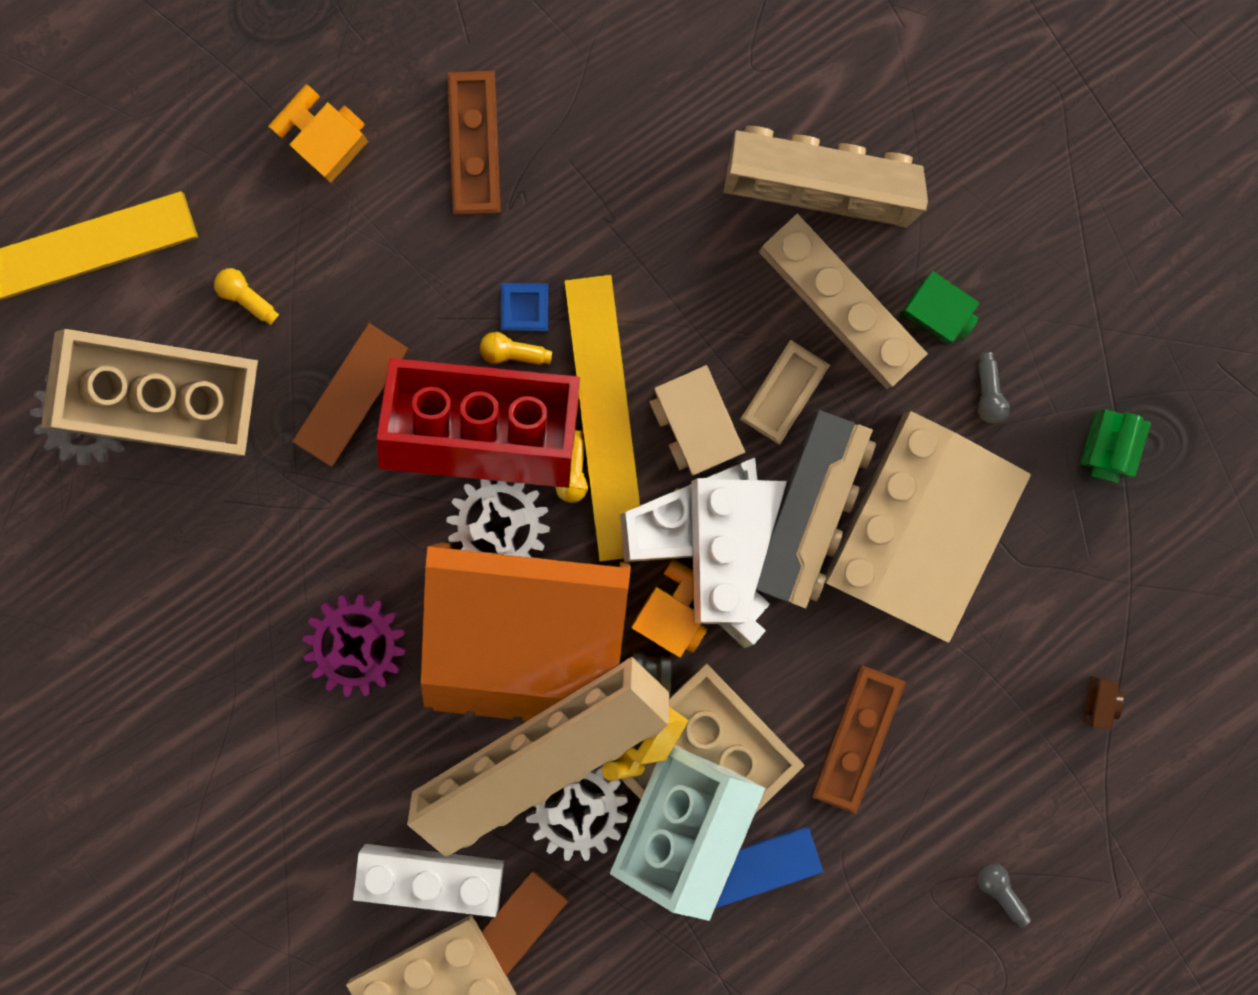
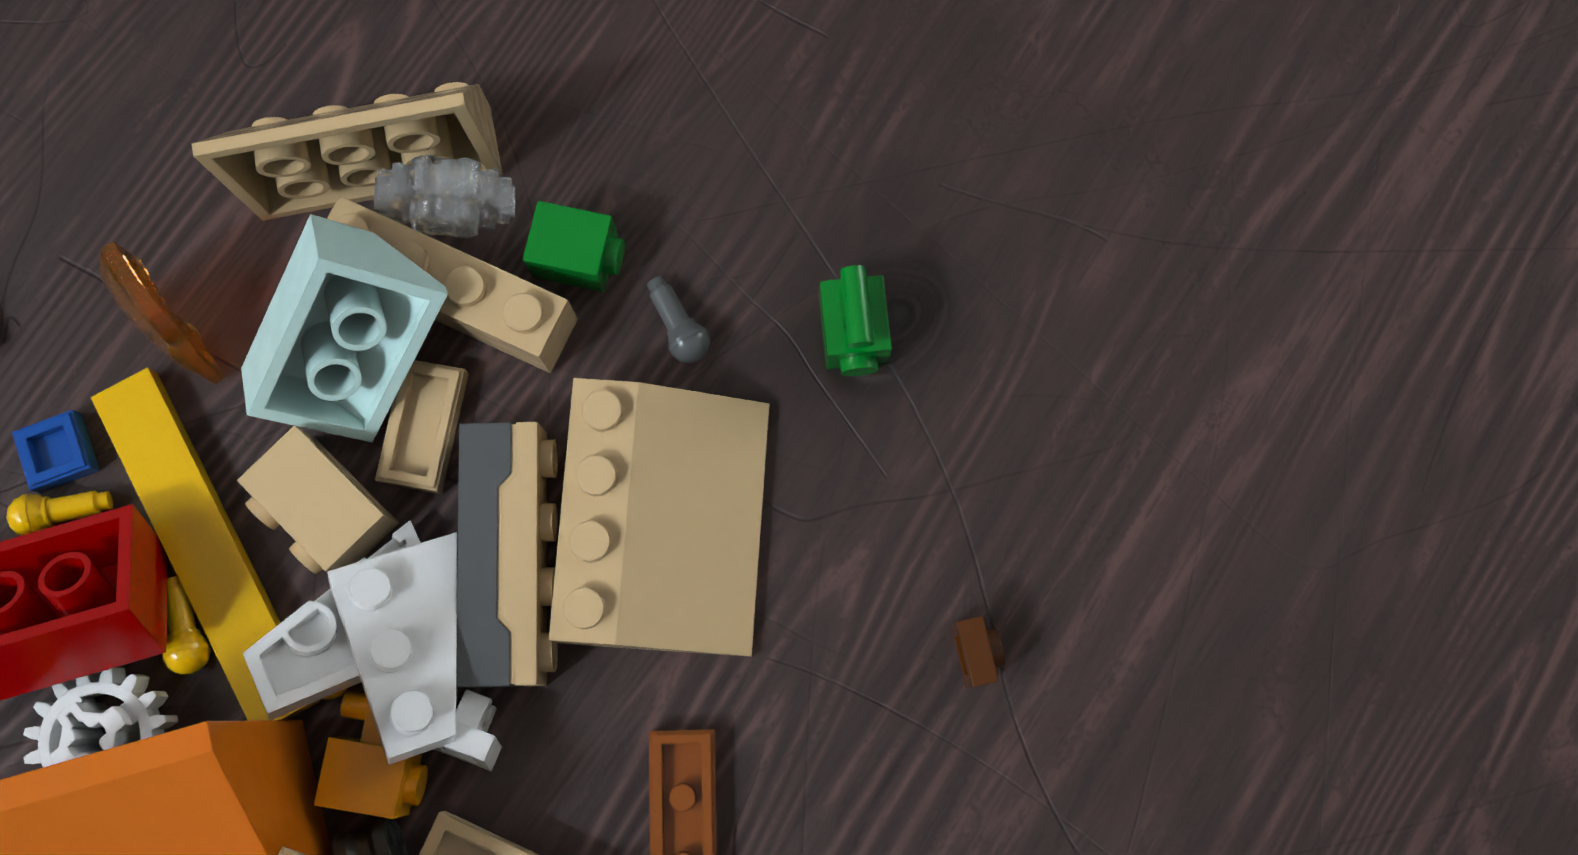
camera: 20 degrees left, 10 degrees down
(631, 244) = (147, 310): none -> clear orange brick
(763, 314) = (339, 332): none -> light aqua slope
(869, 242) = (444, 196): none -> clear gear

